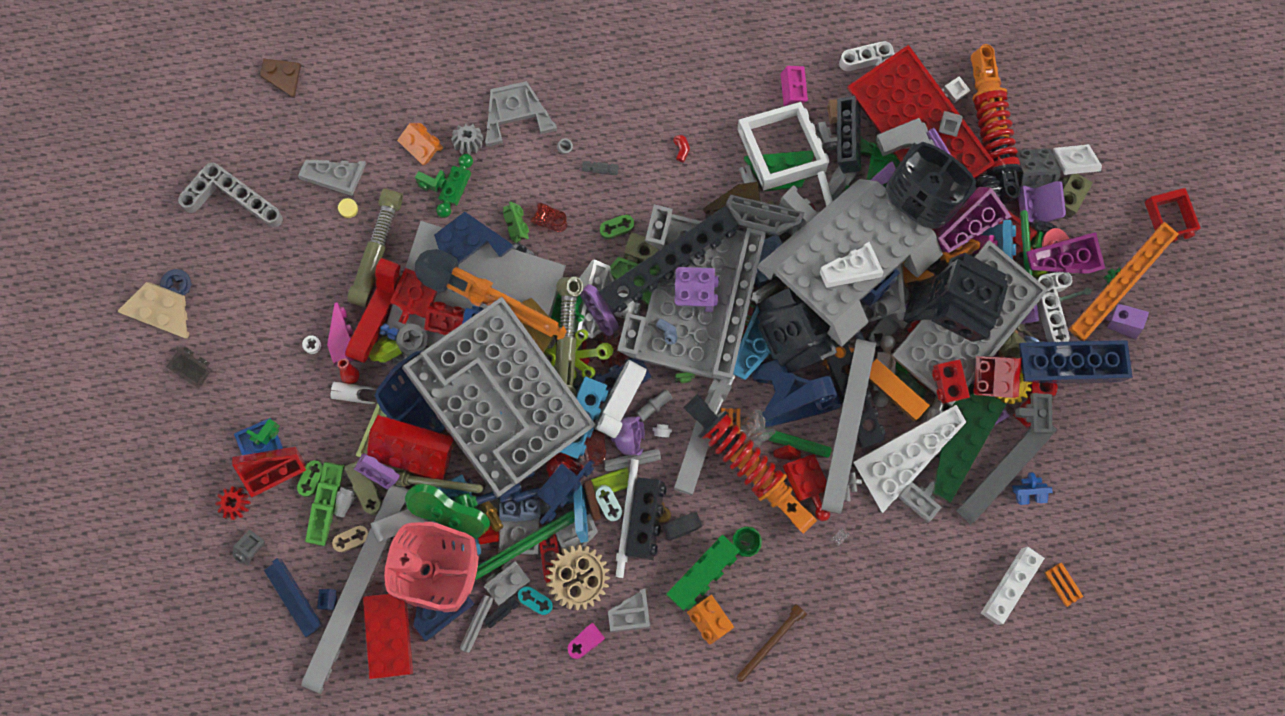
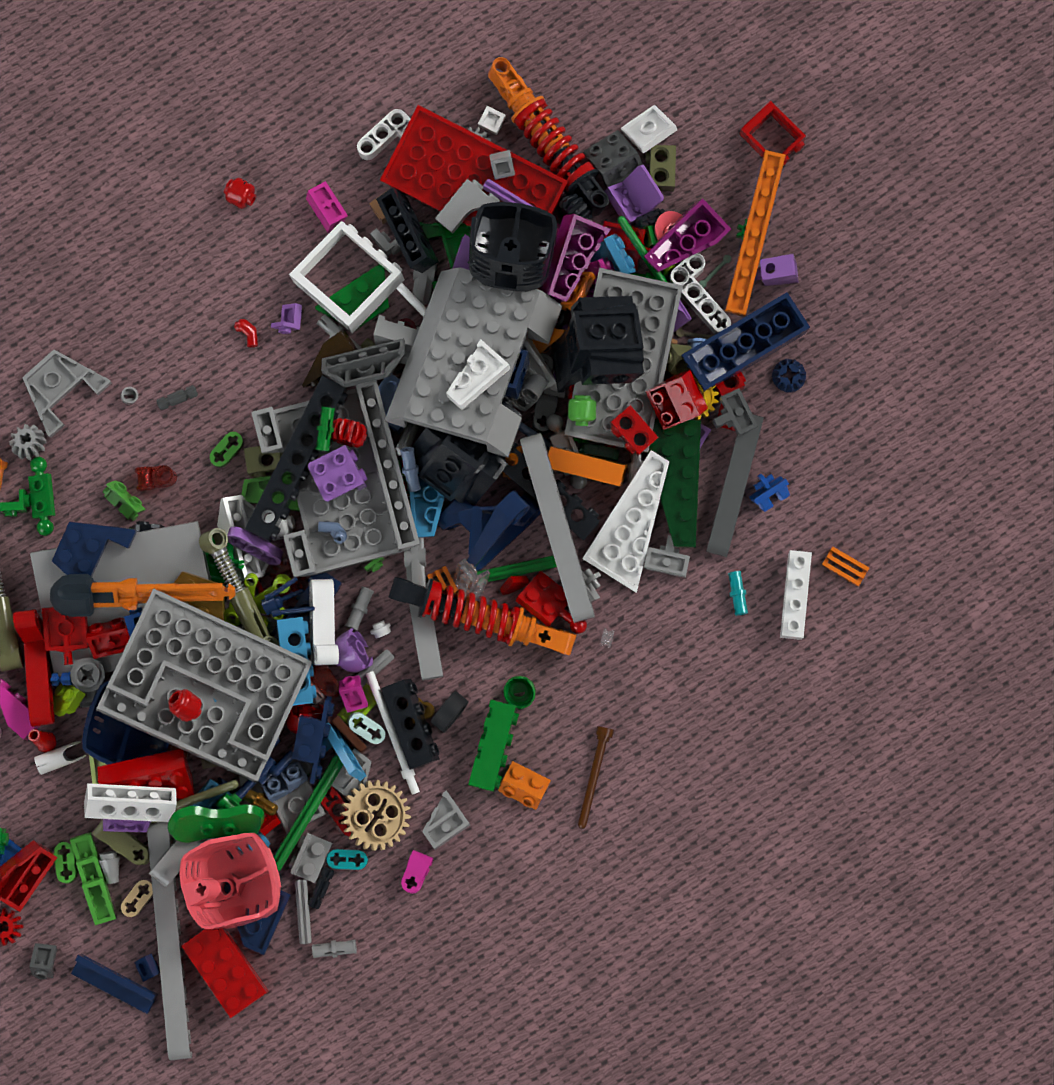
camera: 15 degrees left, 5 degrees up
(387, 457) = (129, 802): none -> white brick
(475, 402) = (185, 705): none -> red head
(484, 668) = (334, 948): none -> light grey pin
(588, 363) = (273, 603): none -> dark blue plant
(612, 469) = (352, 693): none -> dark pink bracket
(706, 247) = (325, 428): none -> green pin
(720, 155) = (290, 319): none -> medium lavender bracket
(722, 260) = (348, 432): none -> red gear
(733, 42) = (240, 193): none -> red head
(755, 316) = (410, 469): none -> sand blue pin
(918, 342) = (582, 409): none -> bright green head
(965, 558) = (738, 593): none -> teal pin
(1086, 411) = (783, 383): none -> dark blue gear

